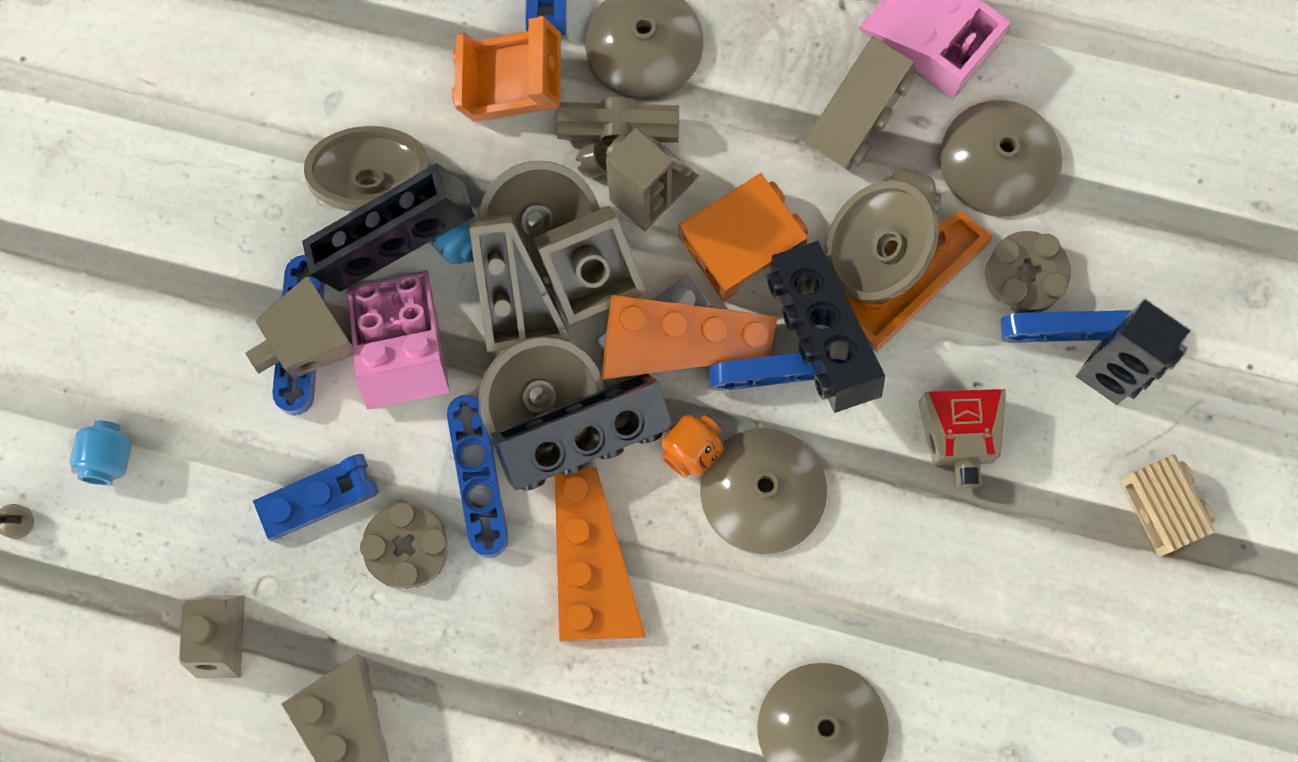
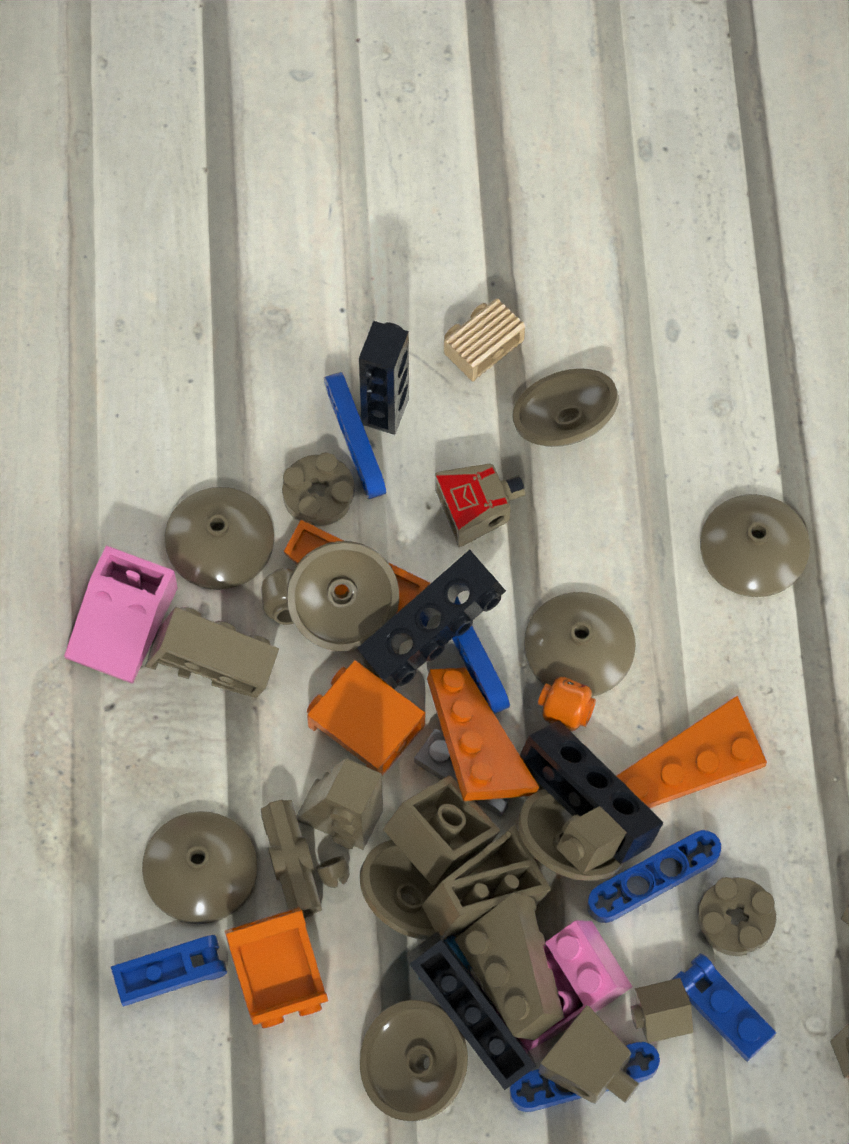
camera: 110 degrees left, 10 degrees down
(328, 427) = (662, 1010): none -> dark tan brick
(413, 282) = (513, 967): none -> dark tan wedge
(518, 400) = (590, 839): none -> dark tan brick
(1049, 563) = (565, 407): none -> dark tan dish

